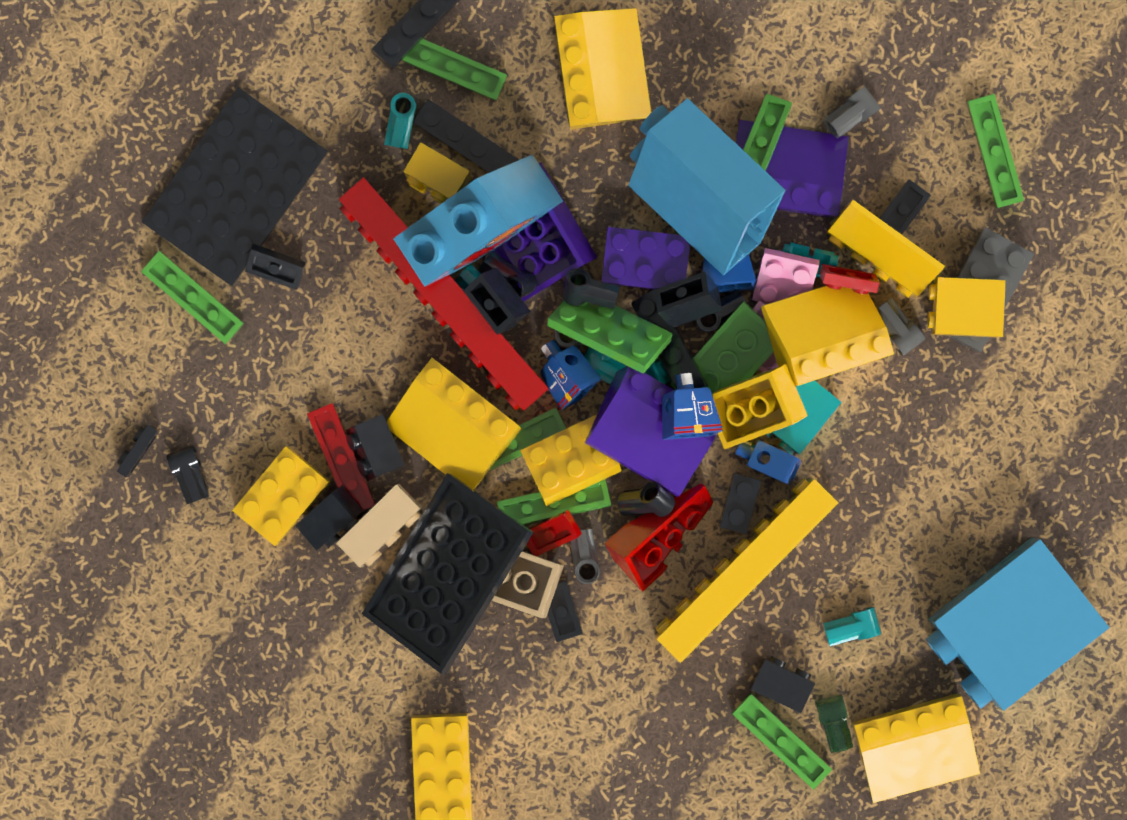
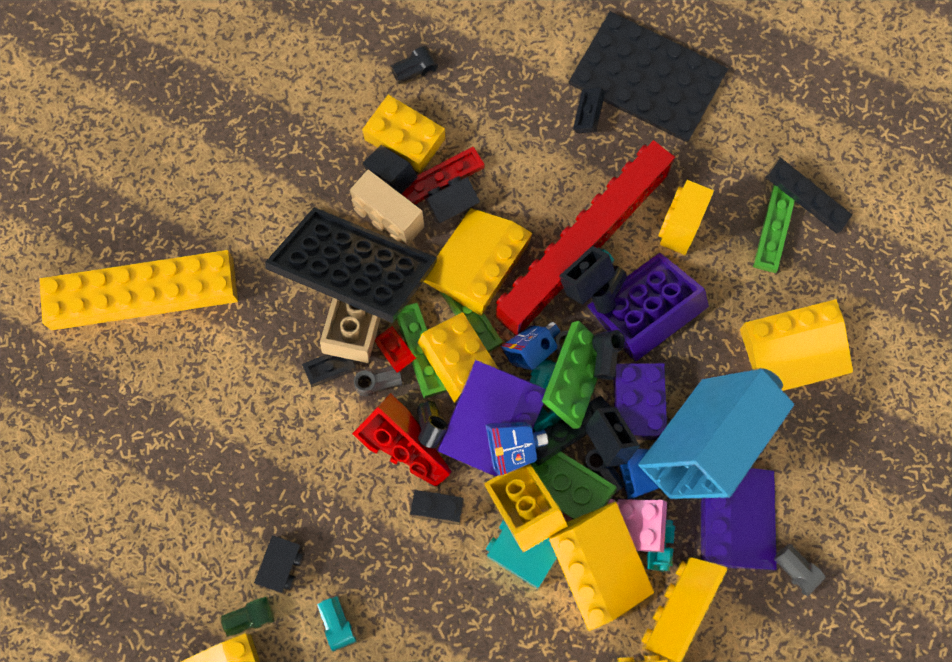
camera: 90 degrees right, 15 degrees down
(130, 460) = (422, 23): black plate -> none
(192, 297) = (555, 53): bright green plate -> none
(400, 124) = (722, 191): teal piece -> none
(462, 138) = (716, 245): black plate -> none
(478, 219) = (657, 242): dark azure brick -> none
(746, 569) = (378, 517): yellow brick -> none
(767, 129) = (770, 492): bright green plate -> none
(781, 464) = (475, 537): blue torso -> none
(782, 741) = (228, 571): bright green plate -> none
(840, 277) = (650, 590): red plate -> none
(900, 329) = (608, 639): dark grey piece -> none
(905, 206) = (723, 628): black plate -> none

